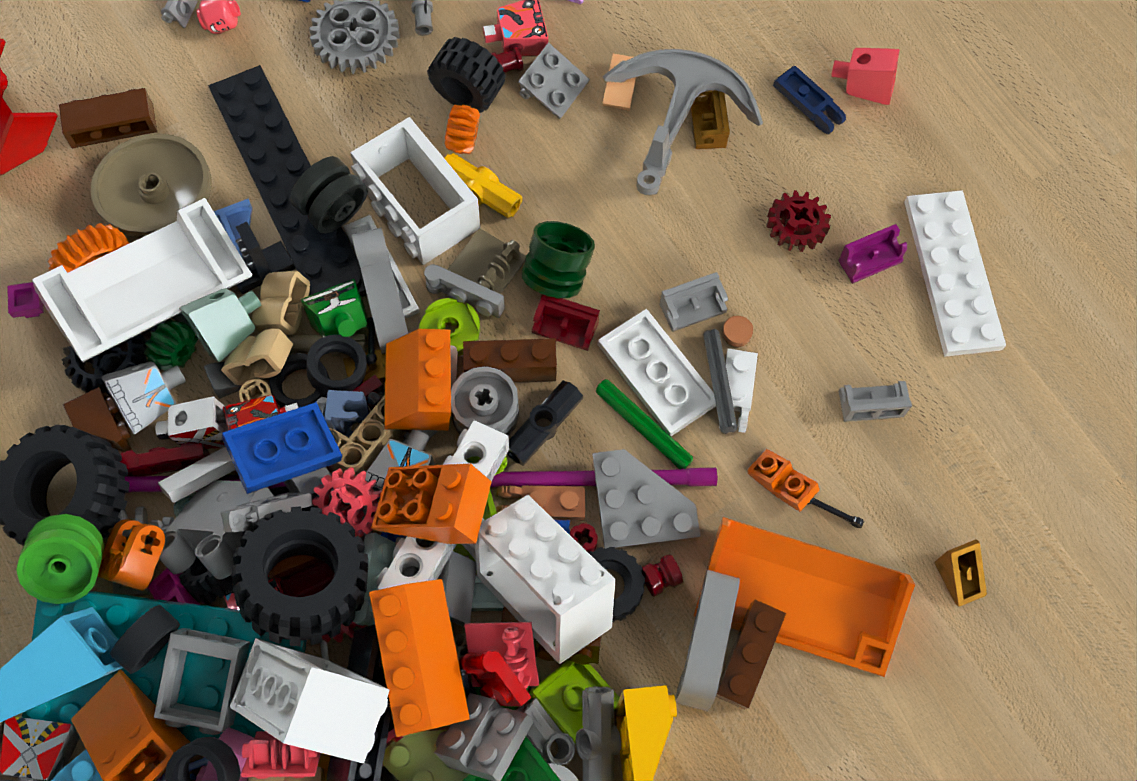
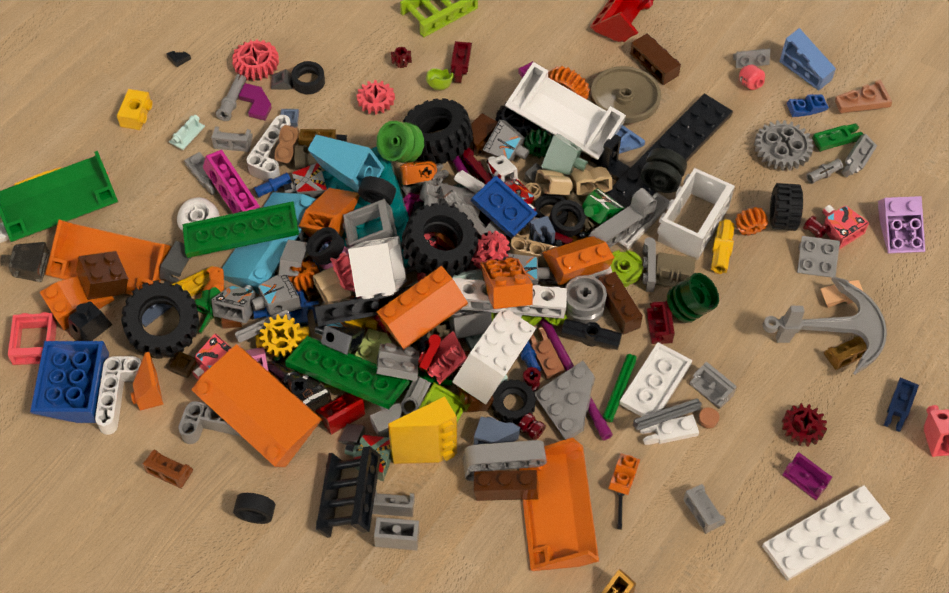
camera: 70 degrees right, 10 degrees down
(653, 637) = (494, 431): none -> sand blue slope

